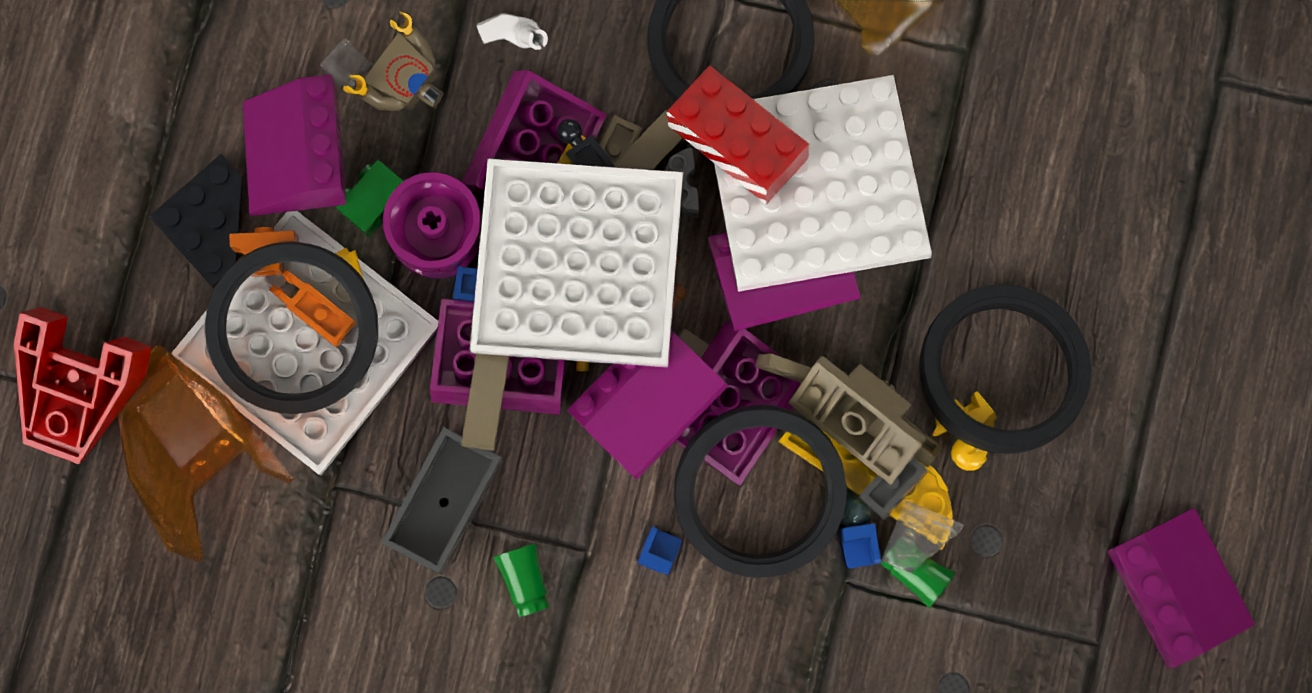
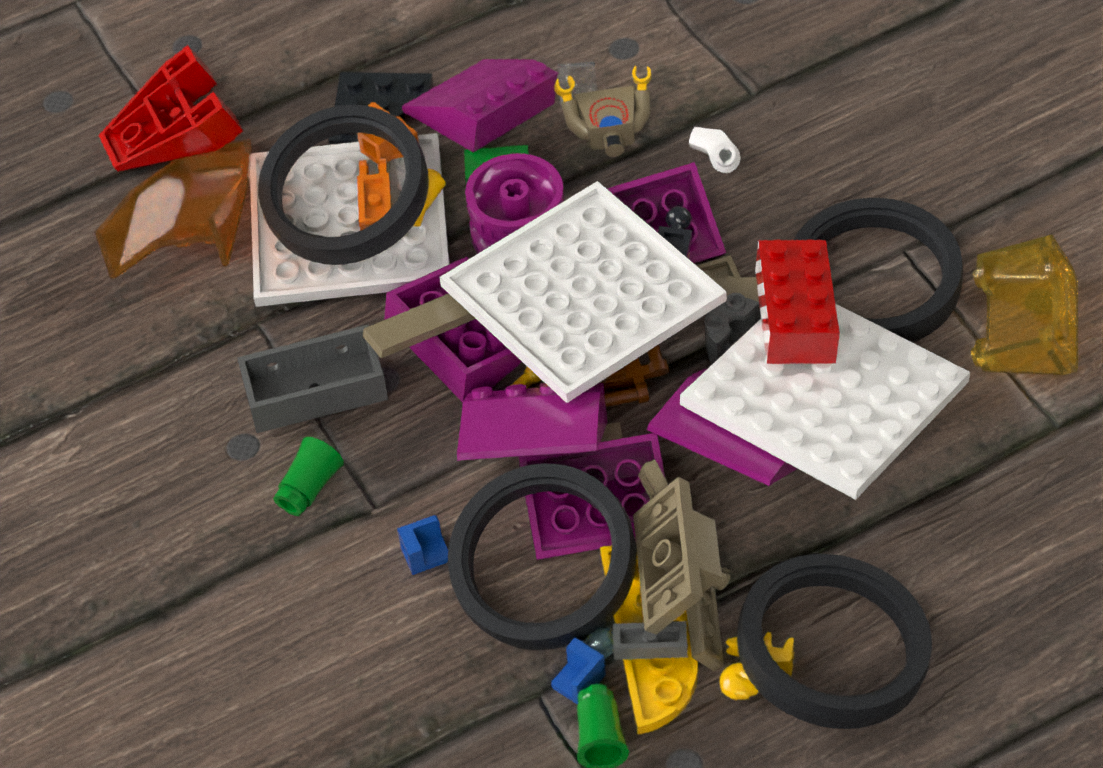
camera: 50 degrees right, 30 degrees down
(918, 536) = (626, 691): clear wing -> none

